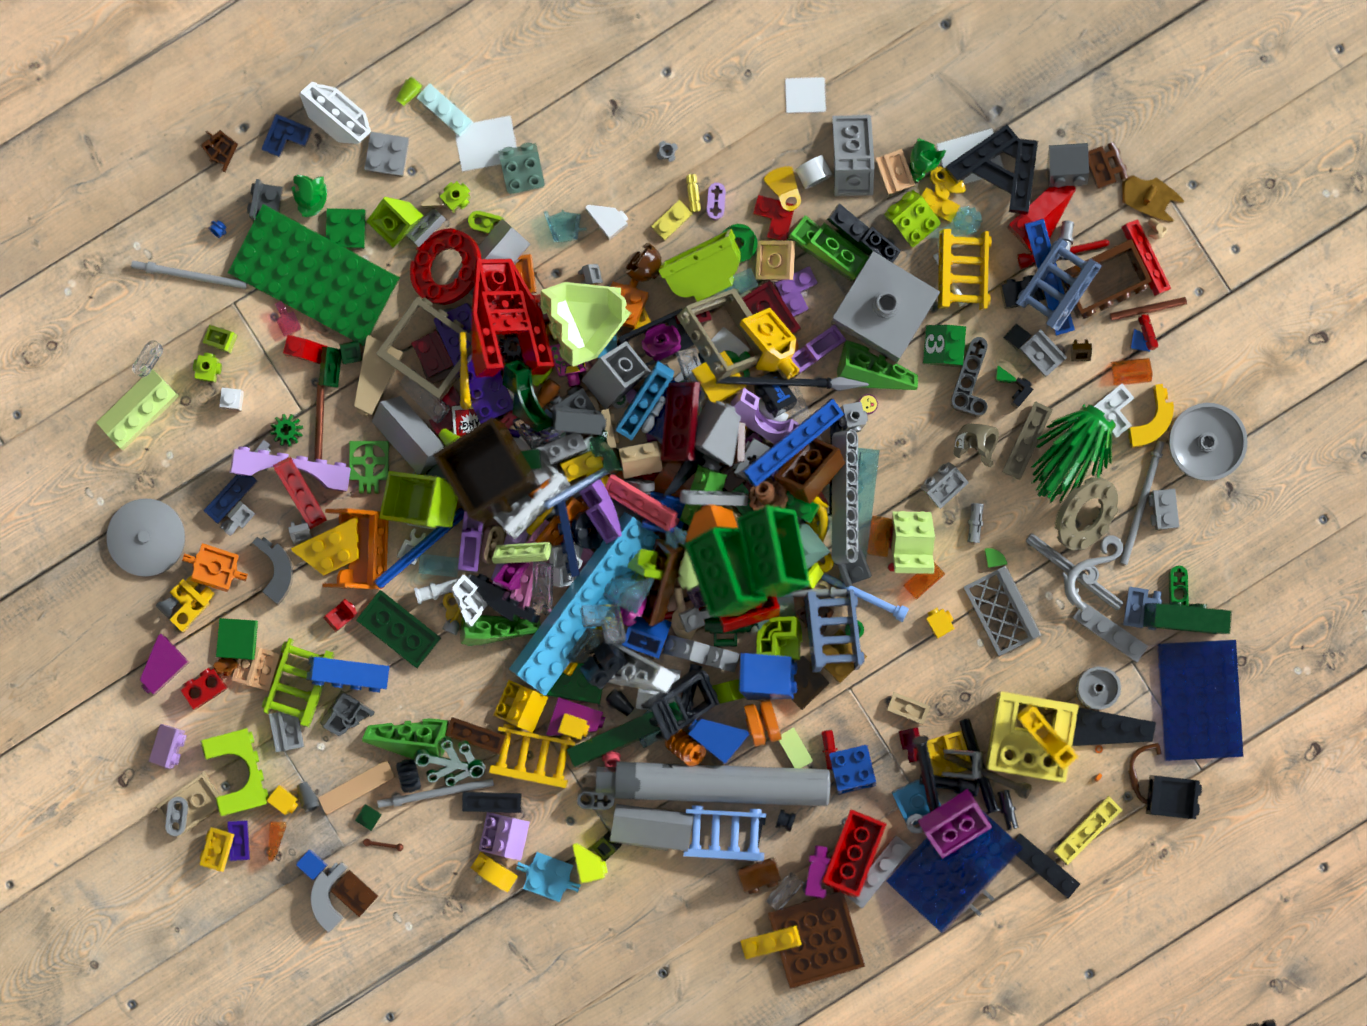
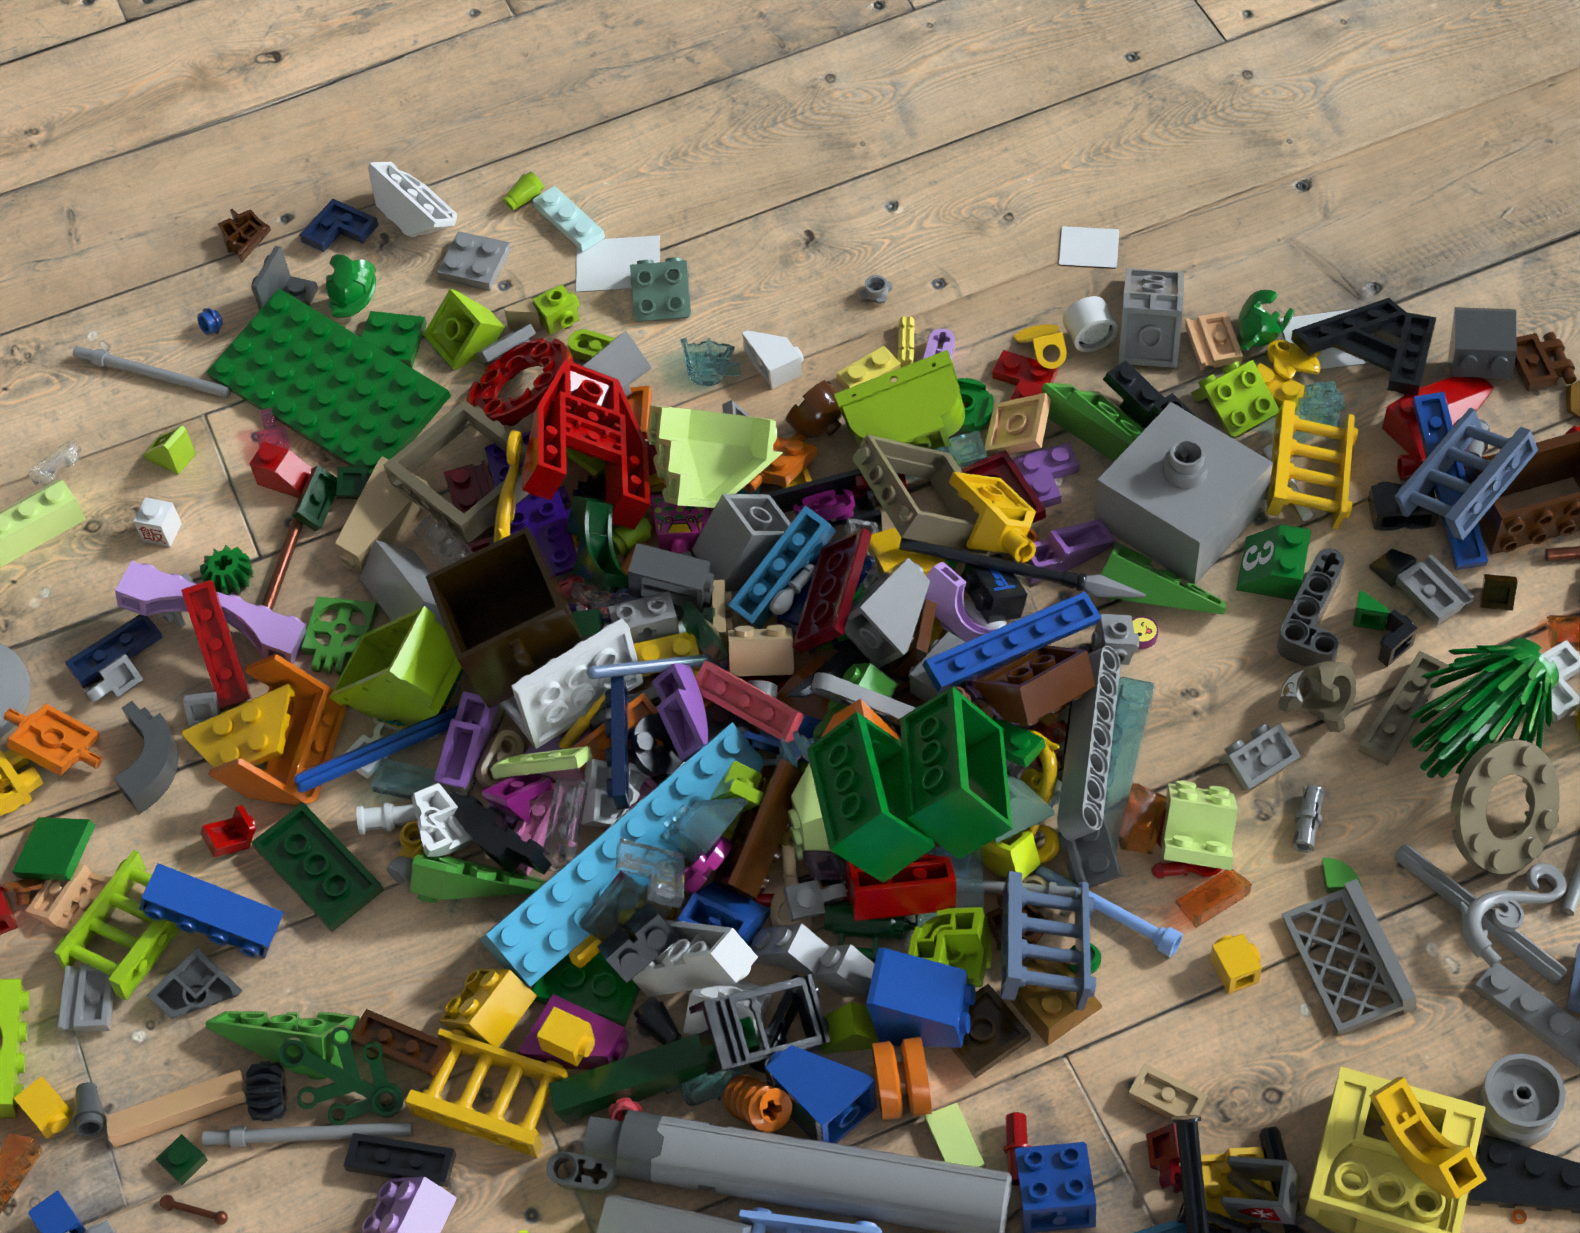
camera: 15 degrees right, 30 degrees down
(209, 374) = (134, 479): lime brick -> none

